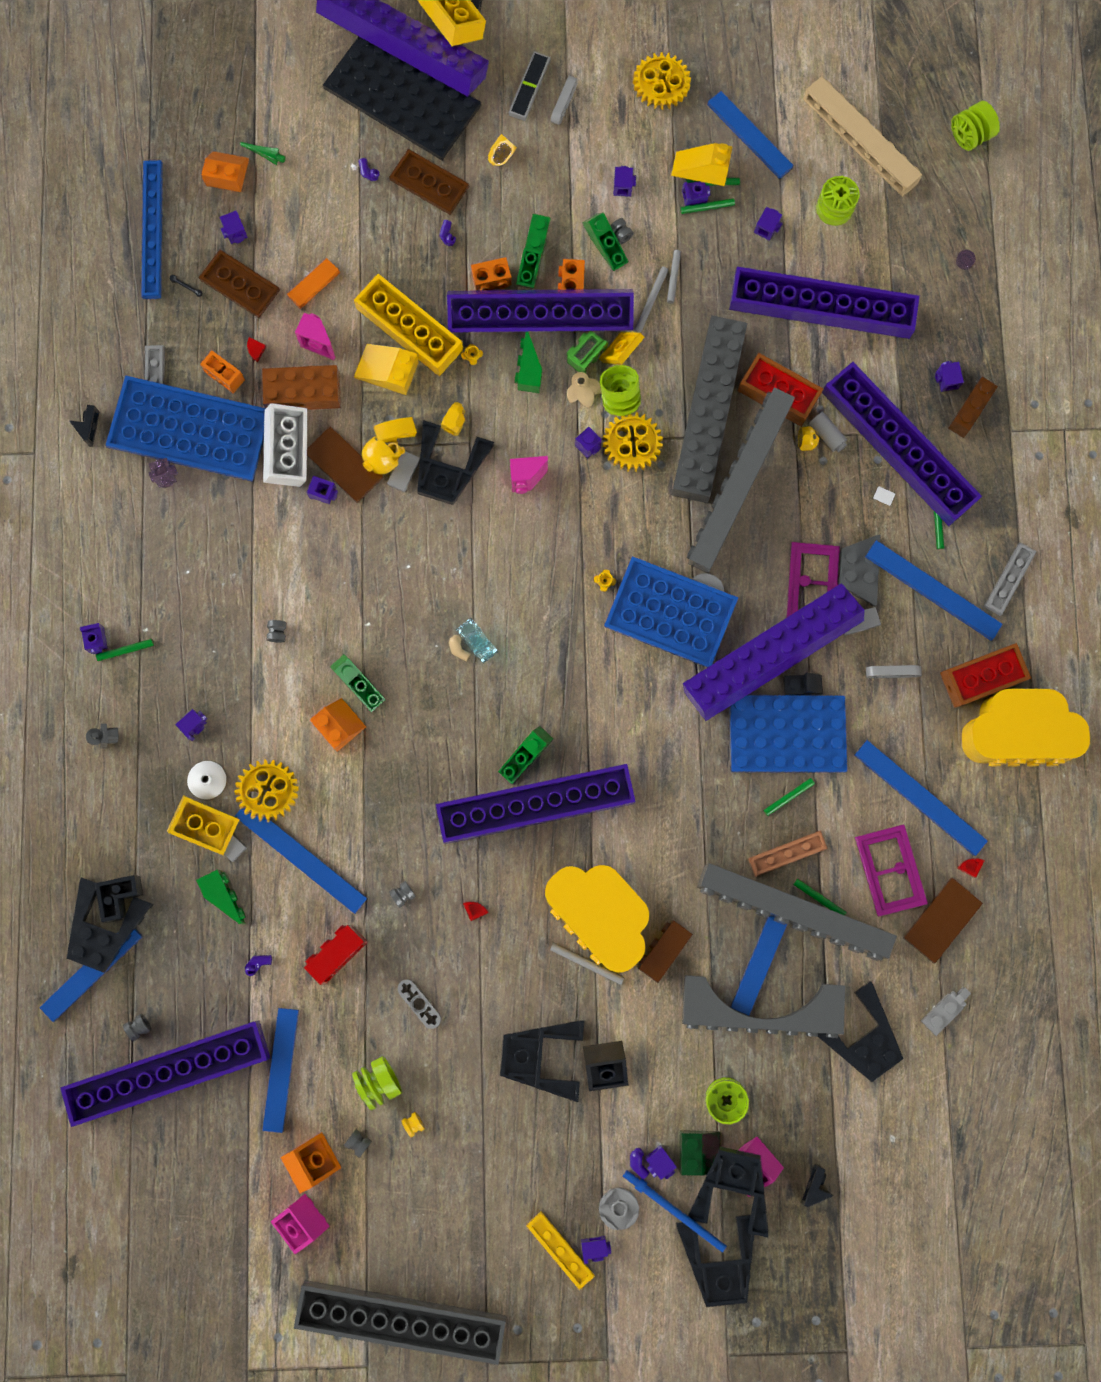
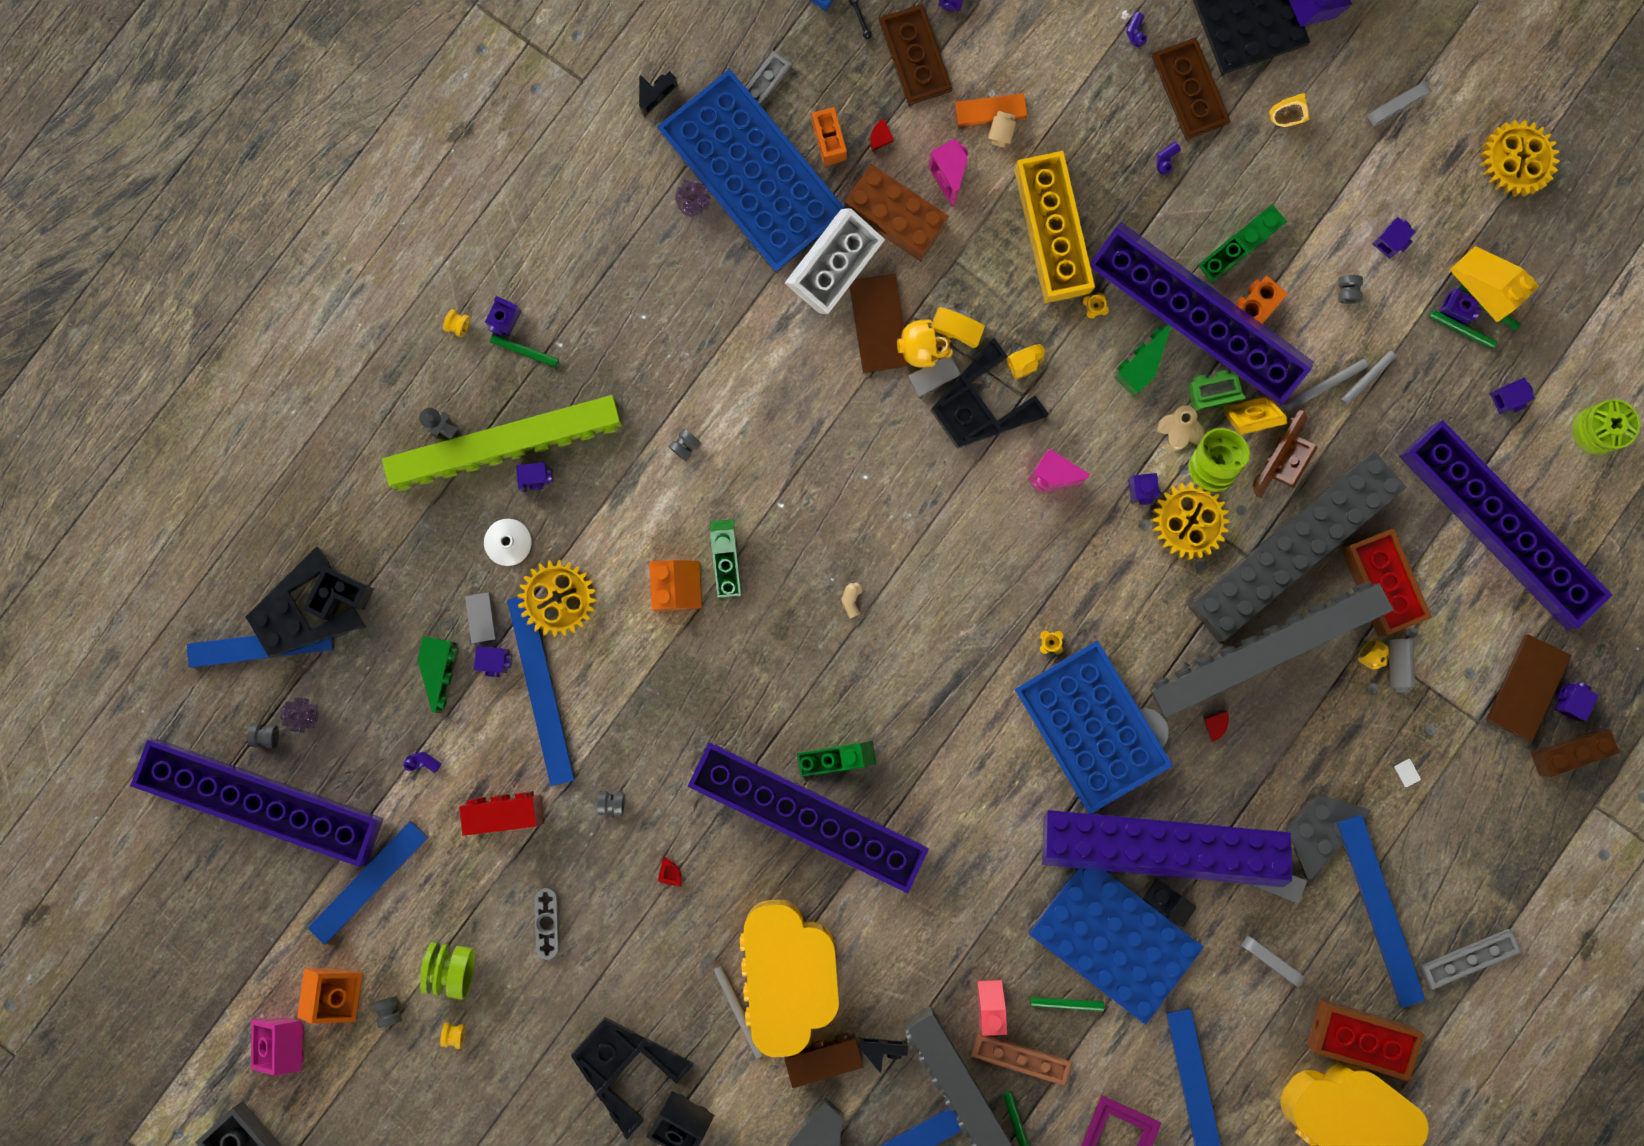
camera: 40 degrees right, 5 degrees up
(66, 664) = (456, 323): none -> yellow wheel
(154, 719) = (502, 442): none -> lime brick
(158, 994) = (307, 715): none -> clear purple brick
(203, 825) = (469, 585): yellow slope -> none
(254, 862) = (492, 660): none -> dark purple brick
(318, 485) = (834, 327): dark purple brick -> none
(330, 288) = (1002, 129): none -> tan brick
(387, 367) = (998, 255): yellow slope -> none
(476, 640) = (875, 608): clear light blue brick -> none
(490, 270) = (1180, 230): orange brick -> none
(529, 86) = (1374, 61): black tile -> none
(605, 240) = (1326, 287): green slope -> none
(663, 359) = (1289, 457): none -> dark orange bracket
(692, 918) = (876, 1048): none -> black slope
(744, 835) = (991, 1008): none -> coral slope
(746, 554) = (1217, 725): none -> red tile
(750, 135) = (1568, 285): blue tile -> none
(795, 566) = (1255, 798): magenta door -> none
(901, 444) = (1468, 735): dark purple brick -> none
(915, 388) = (1528, 687): none -> reddish brown tile
(939, 532) = (1443, 842): green bar -> none

